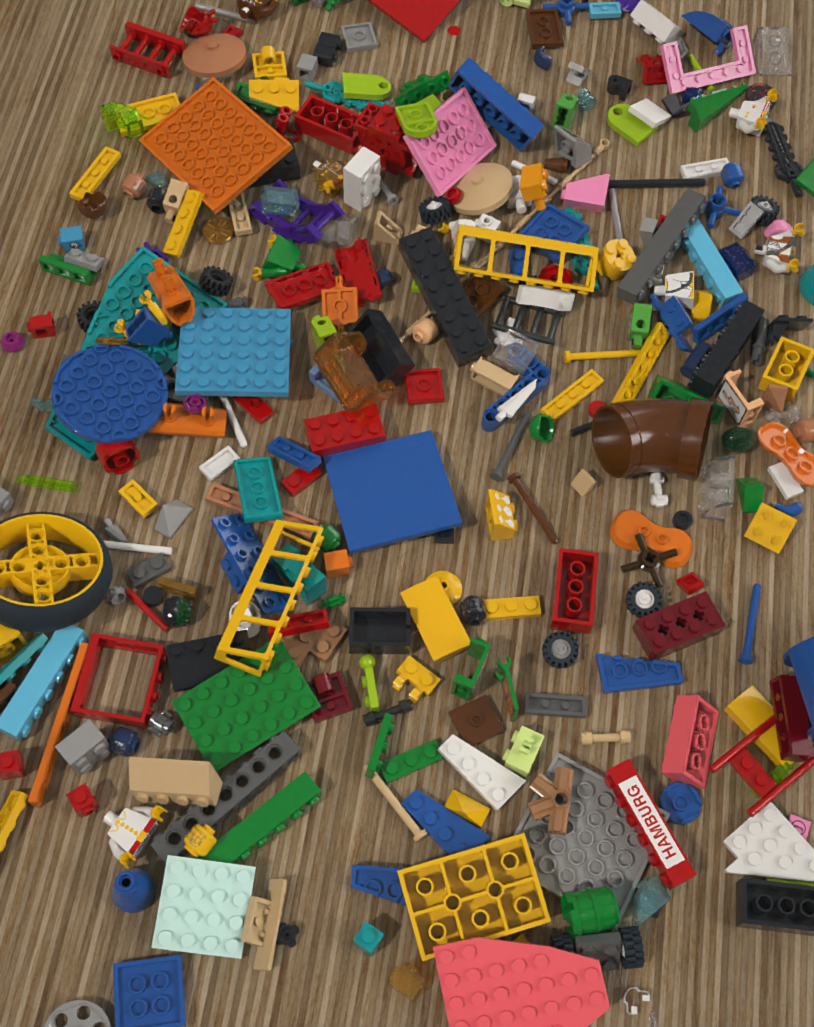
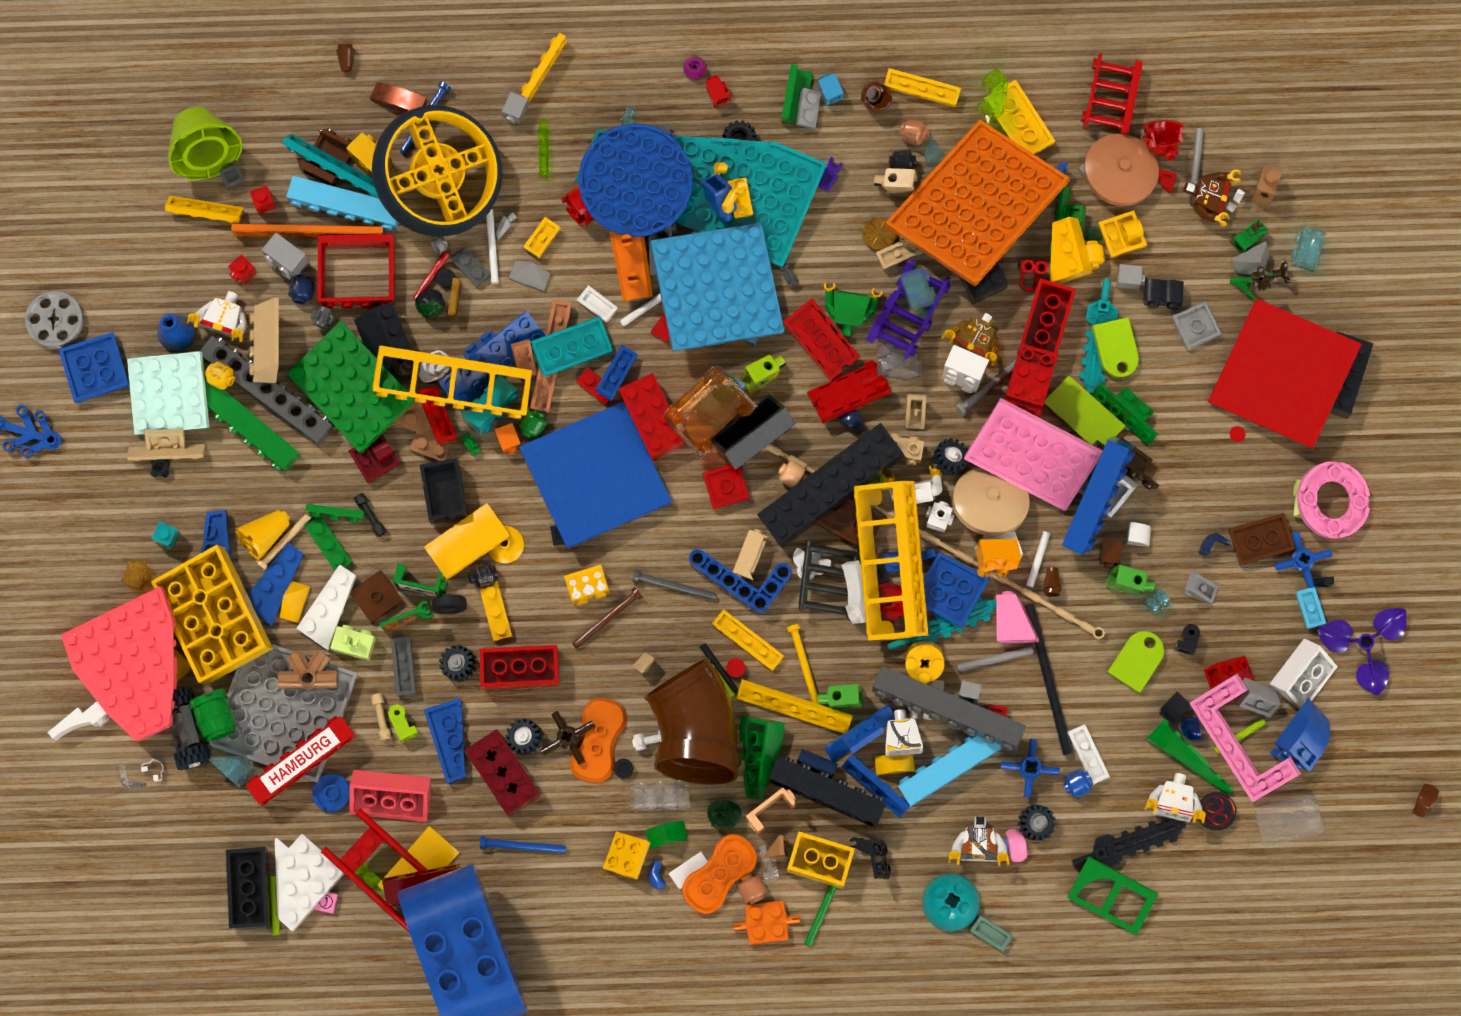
camera: 85 degrees right, 15 degrees up
(111, 340) = (699, 164): pearl gold wheel -> none
(171, 293) = (765, 207): orange piece -> none
(183, 223) = (870, 196): yellow plate -> none
(194, 403) = (645, 258): magenta plate -> none
(216, 281) = (814, 253): black tyre -> none
(256, 531) = (524, 356): none -> nougat plate
(340, 304) = (801, 381): orange plate -> none
(368, 681) = (394, 492): lime plate -> none
(388, 827) = (262, 532): none -> yellow cone
(417, 119) = (1027, 409): lime tile -> none
(418, 676) = (410, 537): yellow plate -> none
(454, 195) = (970, 473): red plate -> none
(499, 645) = (449, 604): none -> black tyre
(510, 407) = (716, 579): white bar -> none
(516, 351) = (778, 570): clear tile -> none
(541, 428) = (696, 612): green hair -> none
(544, 117) = (1110, 553): none -> reddish brown brick
(571, 147) = (1075, 594): light grey slope -> none
(615, 718) = (398, 718): none -> lime leg
(649, 113) = (1153, 679): white tile -> none
(690, 583) = (552, 781): red tile -> none
(738, 261) = (957, 797): clear blue brick -> none
(746, 220) = (1014, 803): light grey plate -> none
(759, 347) = (856, 831): dark grey pin -> none

